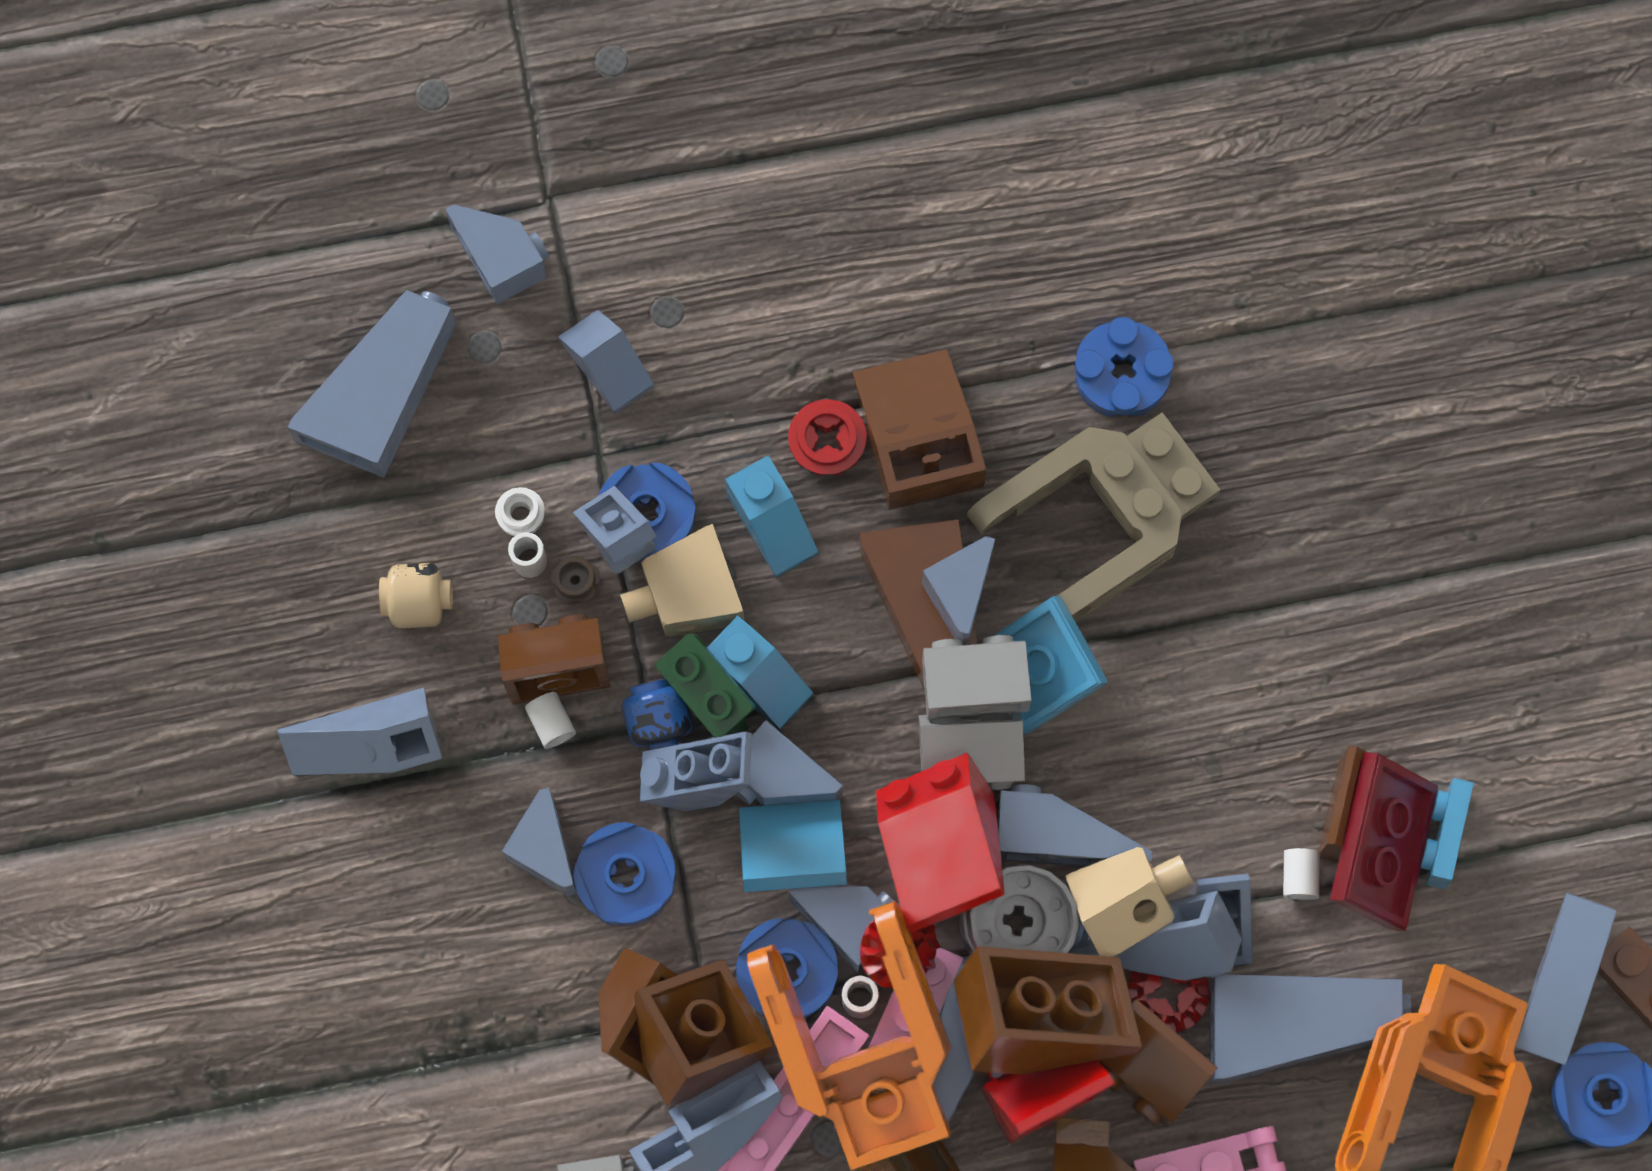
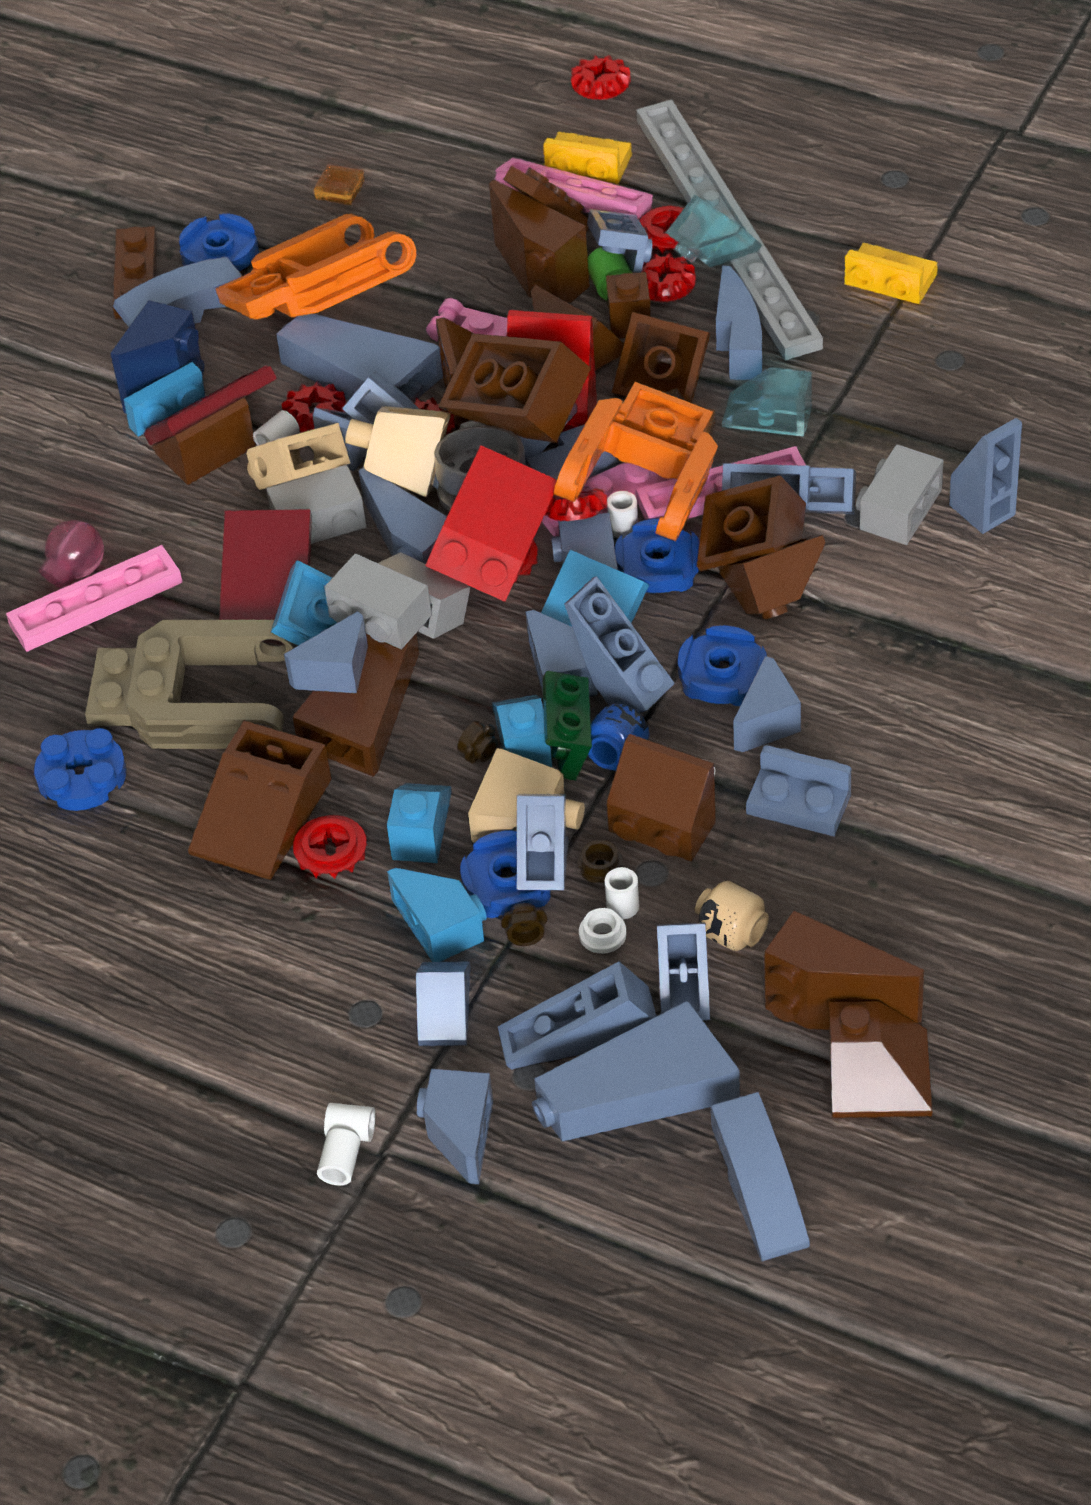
camera: 140 degrees left, 25 degrees down
(192, 538) = (877, 1062): none -> reddish brown slope
(218, 362) = (759, 1176): none -> sand blue slope
(267, 563) = (820, 965): none -> reddish brown slope
(365, 739) = (834, 828): sand blue slope -> none
(413, 507) = (683, 967): none -> sand blue slope
(465, 773) = (800, 790): none -> sand blue bracket
(466, 404) = (578, 1018): none -> sand blue slope
(572, 162) = (338, 1156): none -> white hinge
(588, 197) = (351, 1117): none -> white hinge
(591, 471) = (524, 924): none -> dark brown plate
(672, 427) = (437, 912): none -> dark azure slope
(784, 631) = (477, 742): none -> dark brown plate
(1152, 680) = (258, 559): none -> dark red tile
(1167, 797) = (330, 497): none -> light grey brick
(1228, 823) = (281, 460): none -> tan torso
(1284, 551) = (94, 598): none -> bright pink plate
(1293, 961) = (299, 401): none -> red gear
(1350, 577) = (71, 552): none -> clear pink piece
(1495, 863) = (154, 347): none -> dark blue slope

